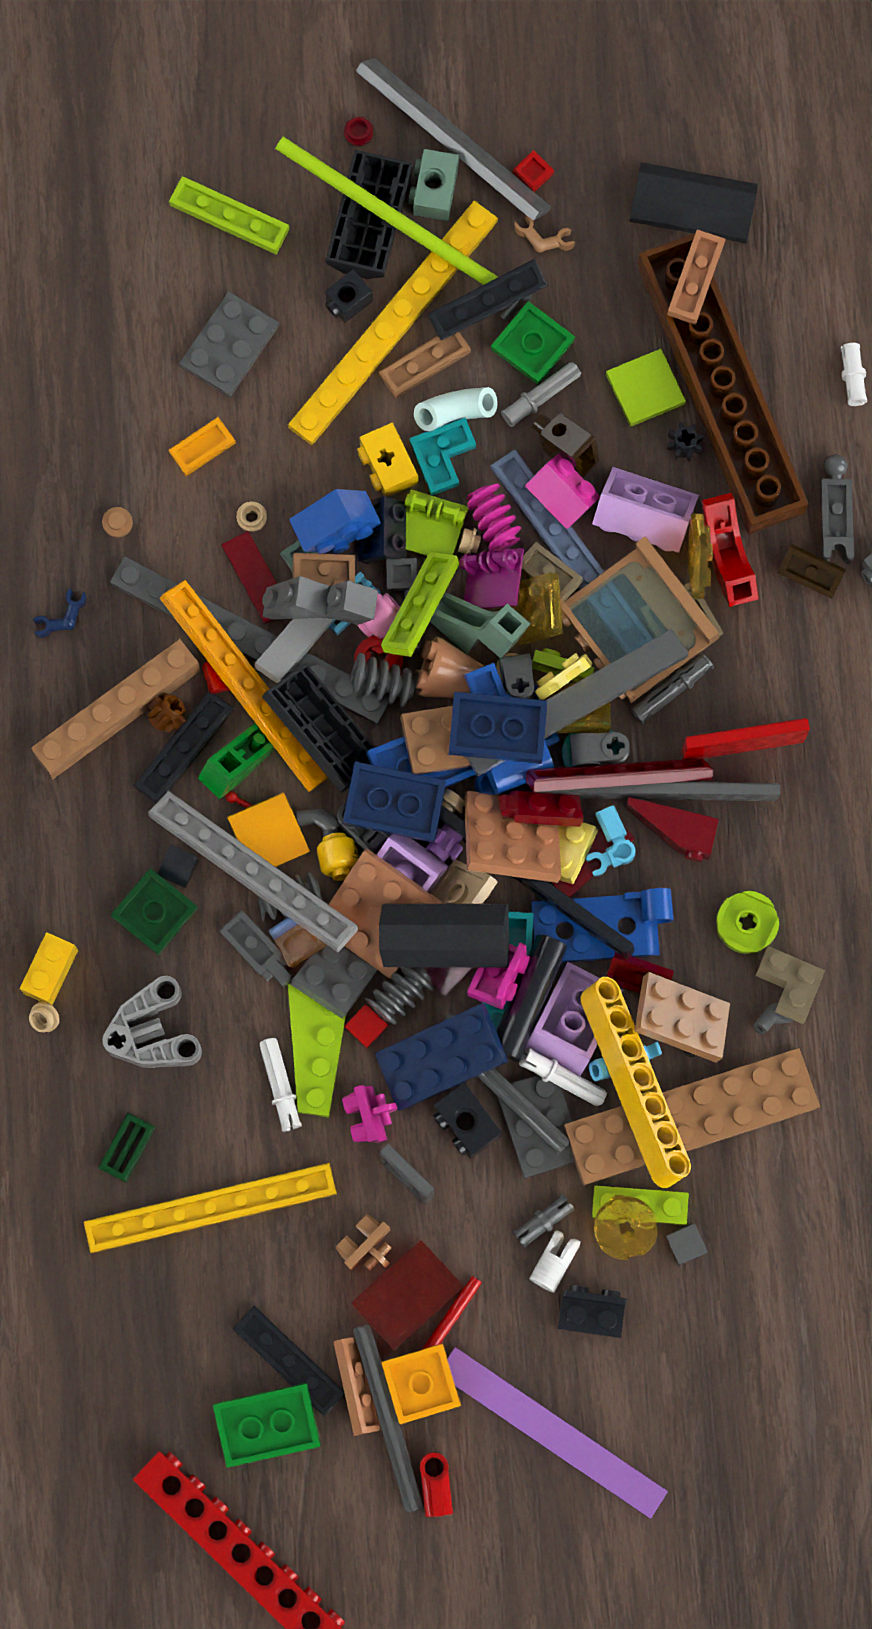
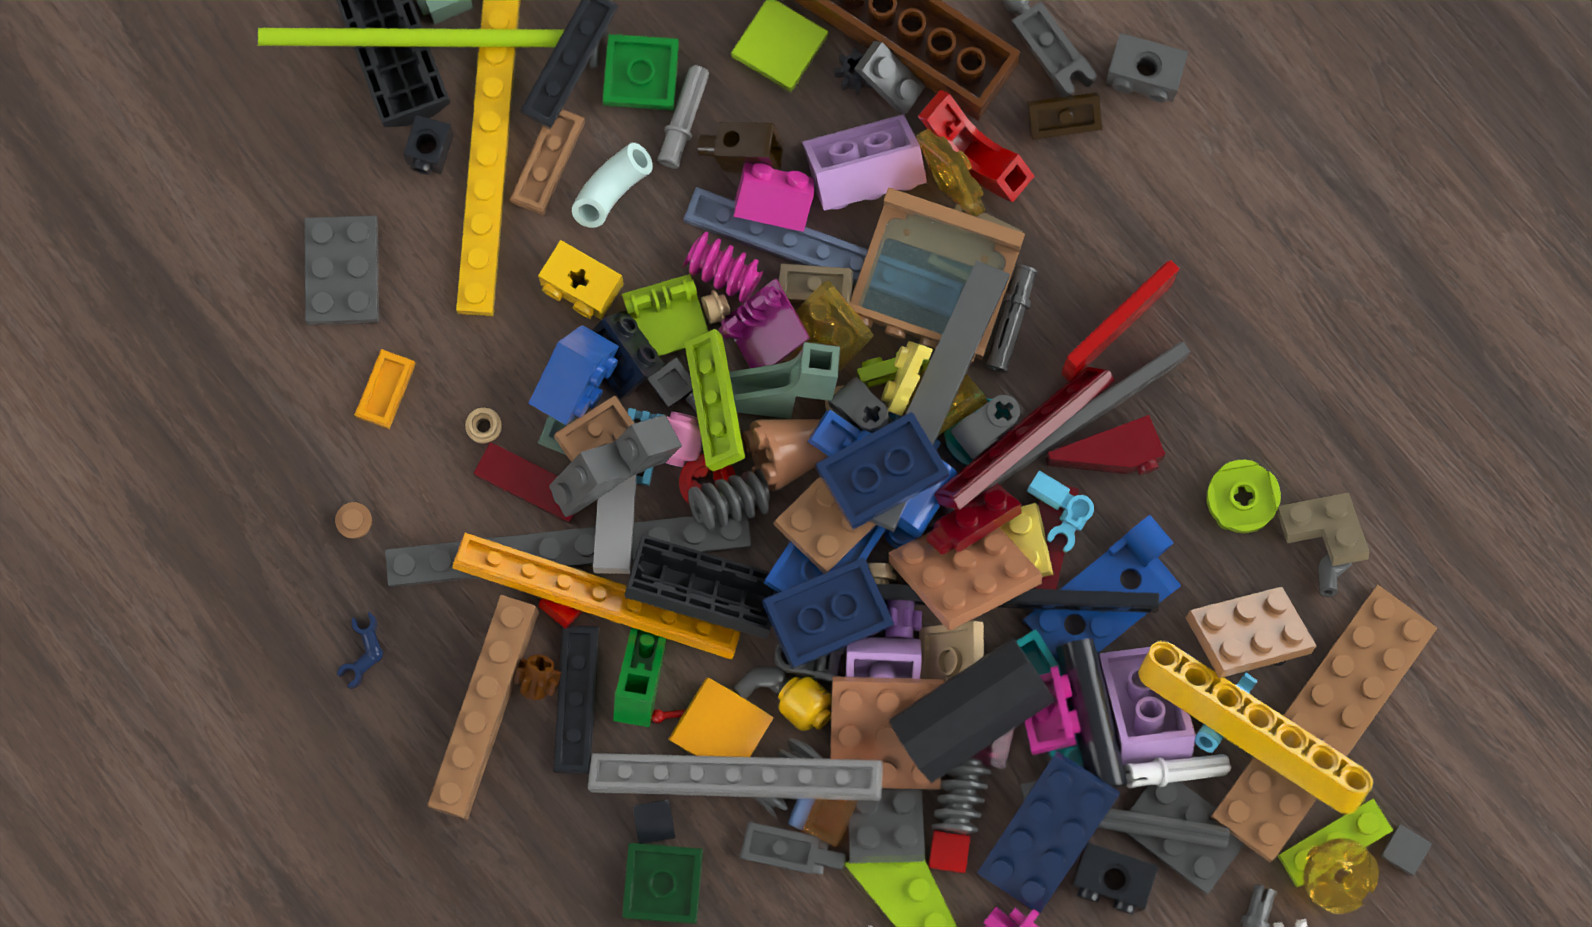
camera: 35 degrees left, 0 degrees up
(229, 215) = (252, 142): lime plate -> none
(434, 452) = (619, 240): teal plate -> none
(630, 972) = (1171, 621): dark red plate -> none
(704, 461) = (889, 77): none -> dark grey plate

